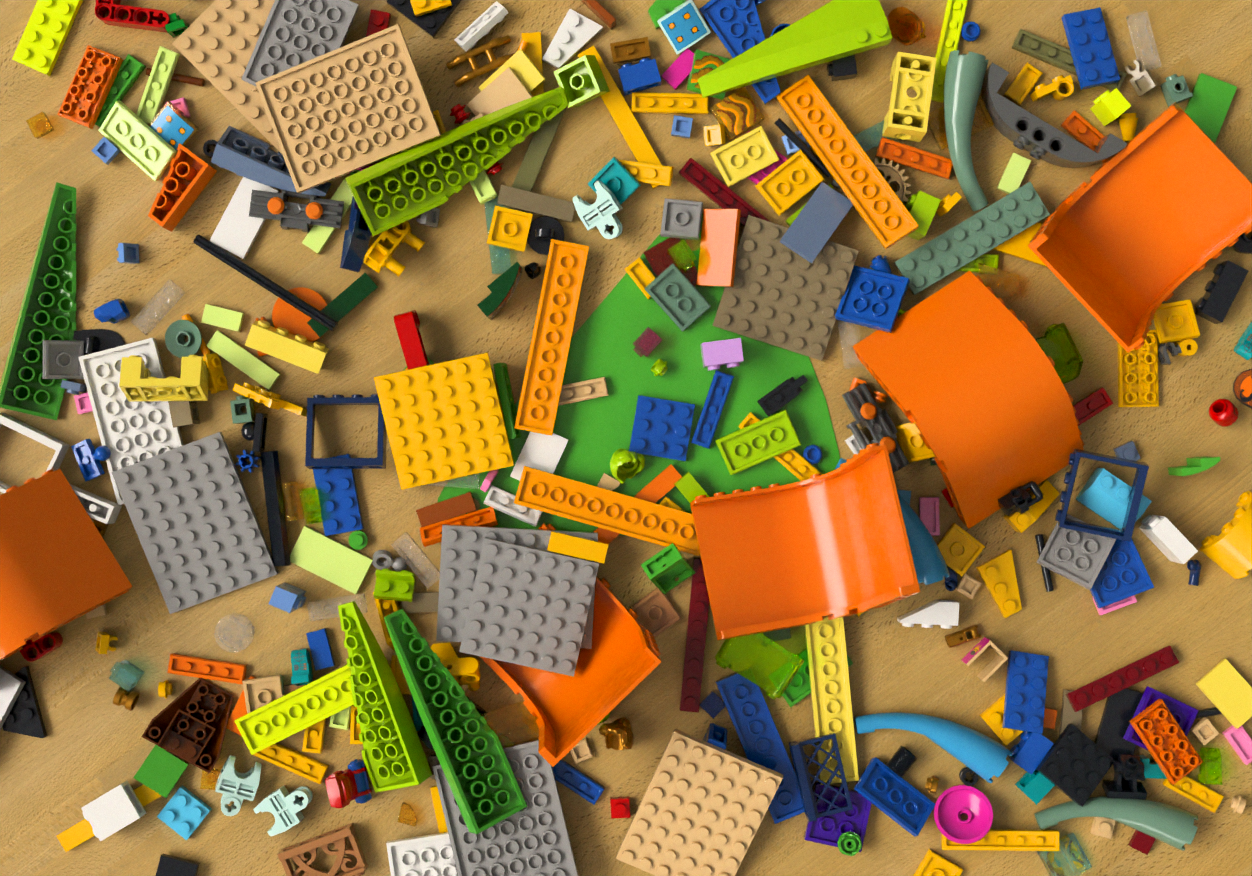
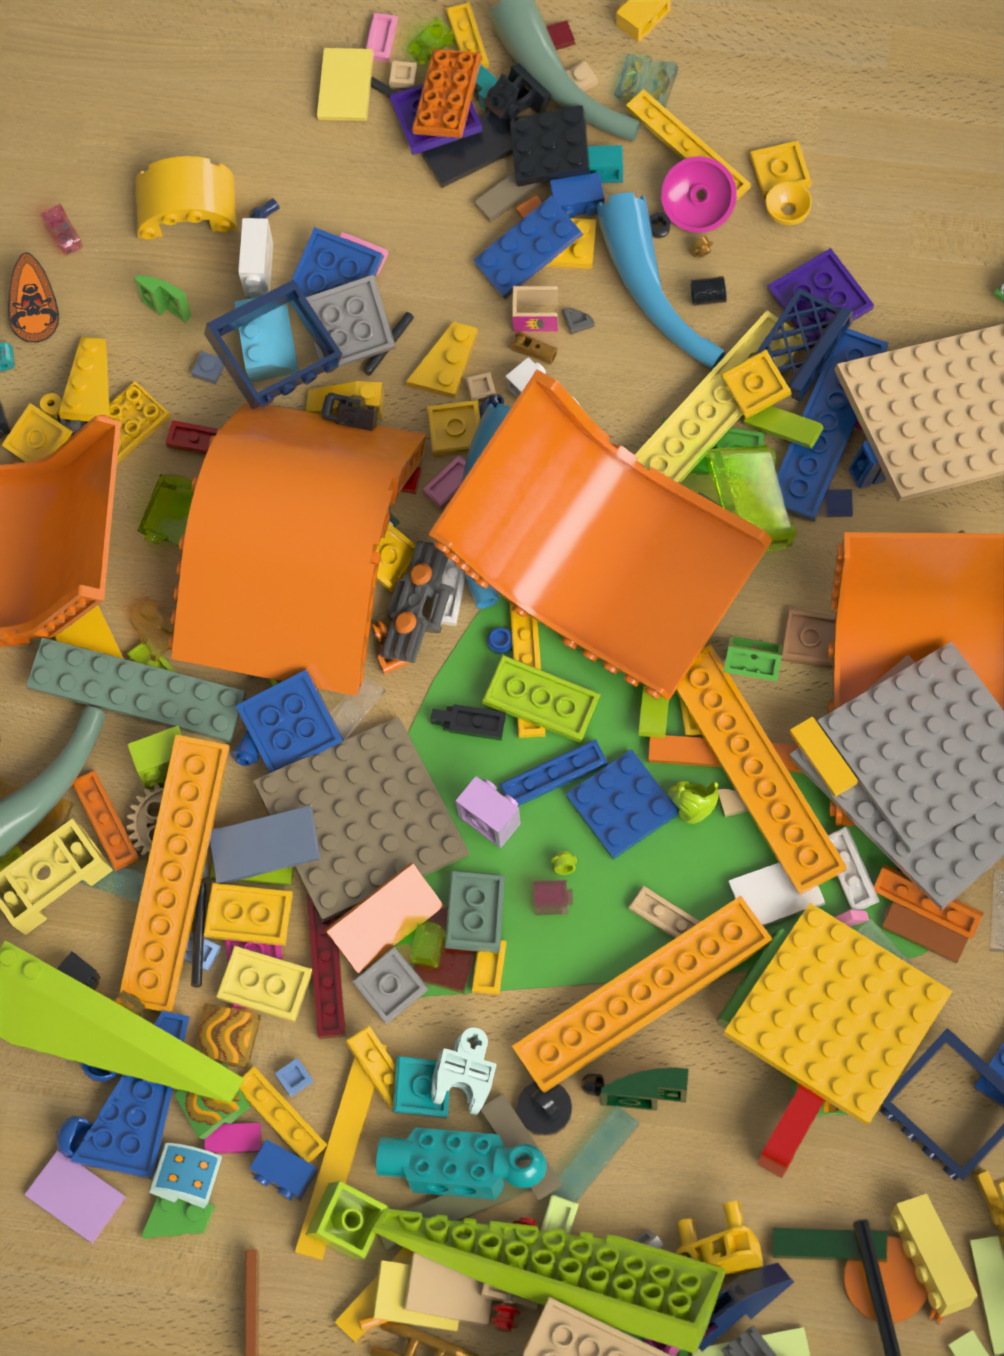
camera: 130 degrees left, 20 degrees down
(509, 228) = (574, 1145): yellow plate -> none
(556, 163) = (458, 1163): none -> teal brick
(570, 38) = (310, 1285): white wing -> none
(630, 50) = (263, 1208): pearl gold plate -> none
(695, 641) = (786, 582): dark red plate -> none
(714, 135) = (271, 1035): yellow plate -> none
(784, 720) = (786, 426): none -> lime tile
(799, 76) = (130, 1002): none -> clear yellow plate
(819, 728) = (756, 384): none -> yellow tile
(855, 845) = (835, 255): bright green plate -> none
(894, 796) = (747, 266): blue plate -> none
(916, 863) = (788, 194): none -> yellow piece
(947, 203) = (118, 740): yellow plate -> none
(956, 676) = (577, 320): none -> dark grey tile
(1013, 173) = (30, 714): yellowish green tile -> none
(1122, 678) = (428, 181): dark red plate -> none
(1181, 378) = (88, 382): none -> yellow wing
(1223, 412) = (85, 319): red head -> none

